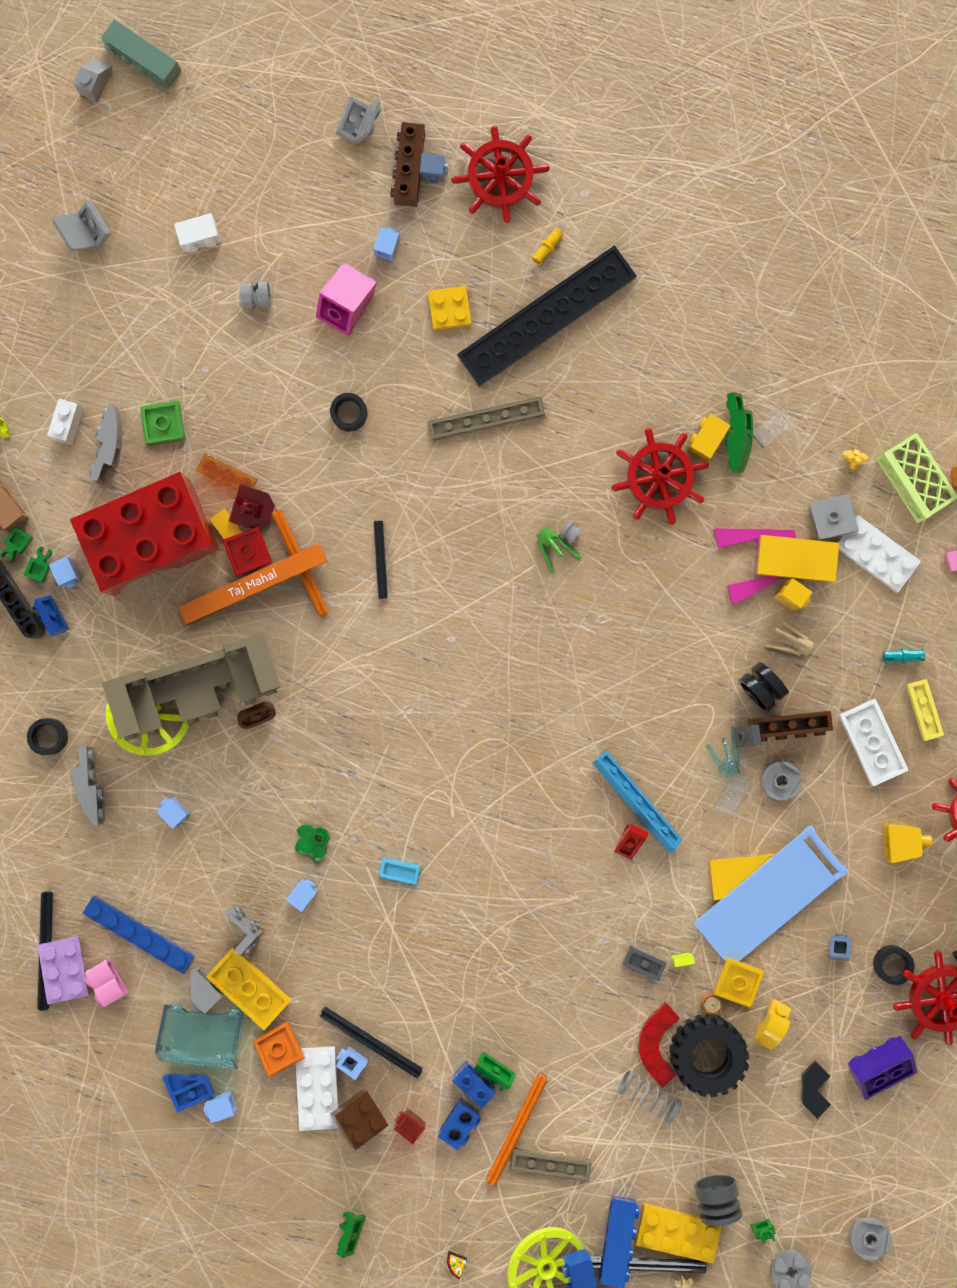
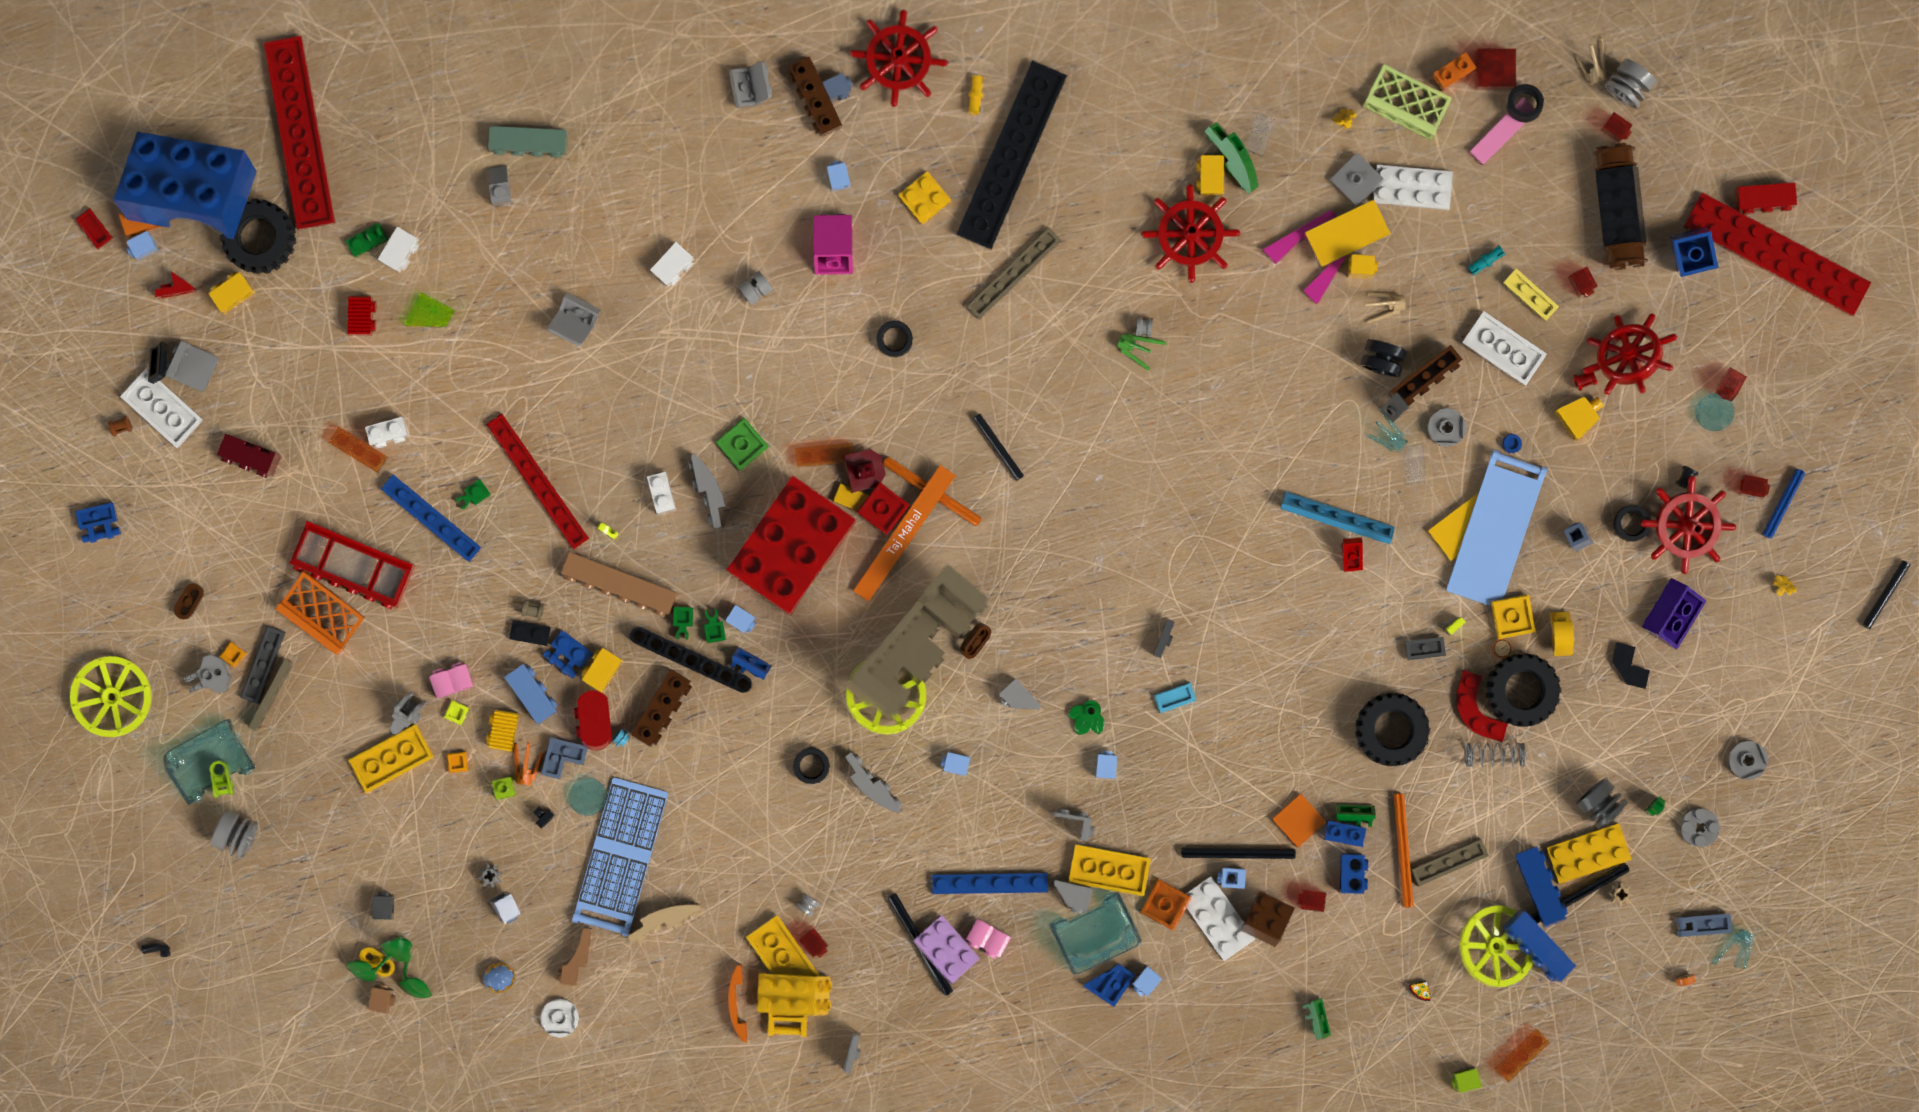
camera: 30 degrees left, 0 degrees up
(263, 787) = (1018, 697): none -> light grey slope
(421, 815) = (1165, 638): none -> dark grey plate
(441, 1046) = (1299, 820): none -> orange tile
(579, 1044) = (1418, 729): none -> black tyre
(829, 829) = (1512, 443): none -> blue tile
(927, 813) = (1584, 380): none -> red bush

